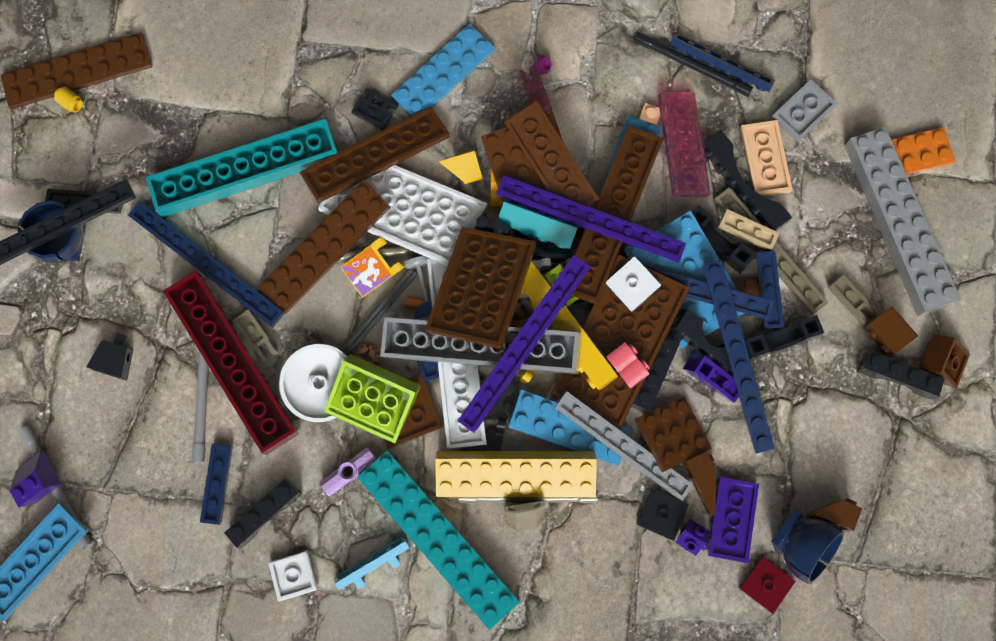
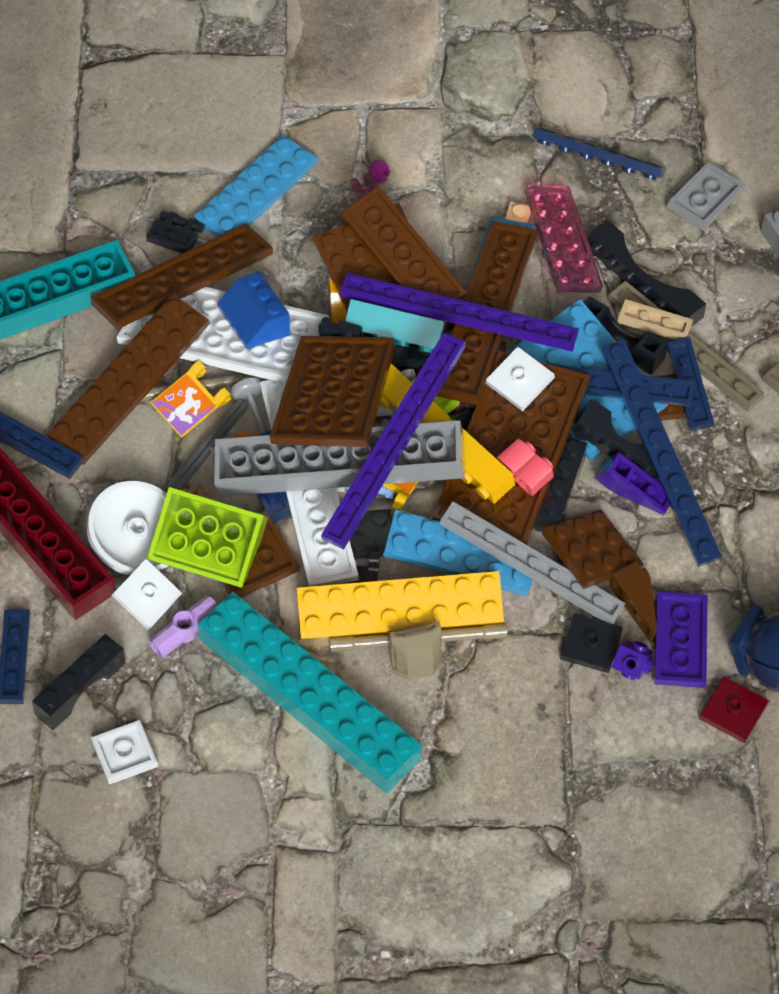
camera: 10 degrees left, 20 degrees down
(253, 333) = (49, 486): dark tan hinge -> none
(321, 440) = (146, 594): none -> white plate
(355, 573) = (246, 714): medium azure hinge -> none
(427, 197) = (254, 311): none -> blue slope
(464, 166) = (296, 280): yellow slope -> none
(736, 85) = (620, 176): black piece -> none
(766, 158) = (666, 247): light nougat plate -> none
(784, 338) = (735, 426): black arch -> none

